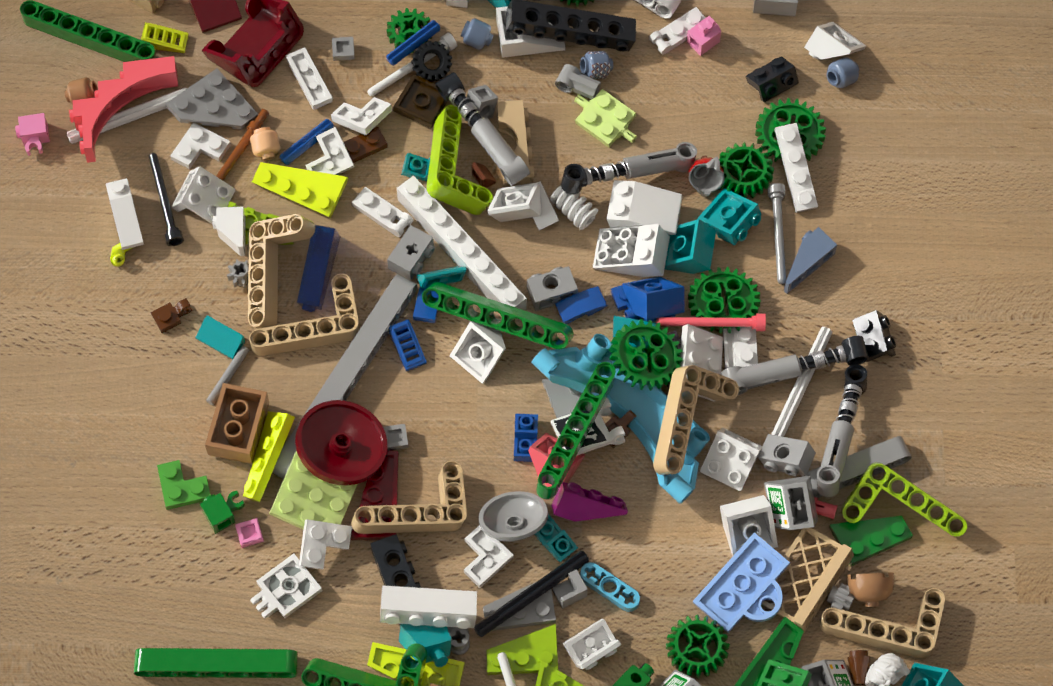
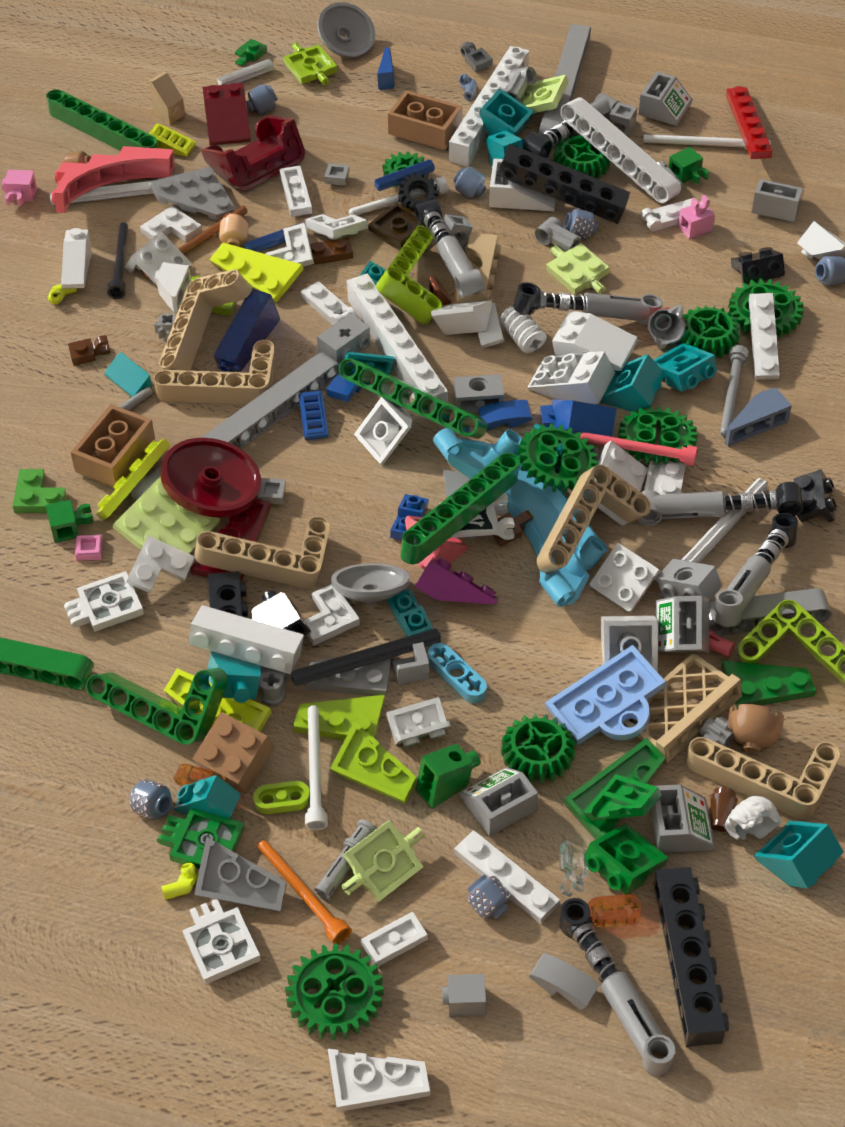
camera: 15 degrees right, 15 degrees down
(445, 571) = (280, 612): none -> torso

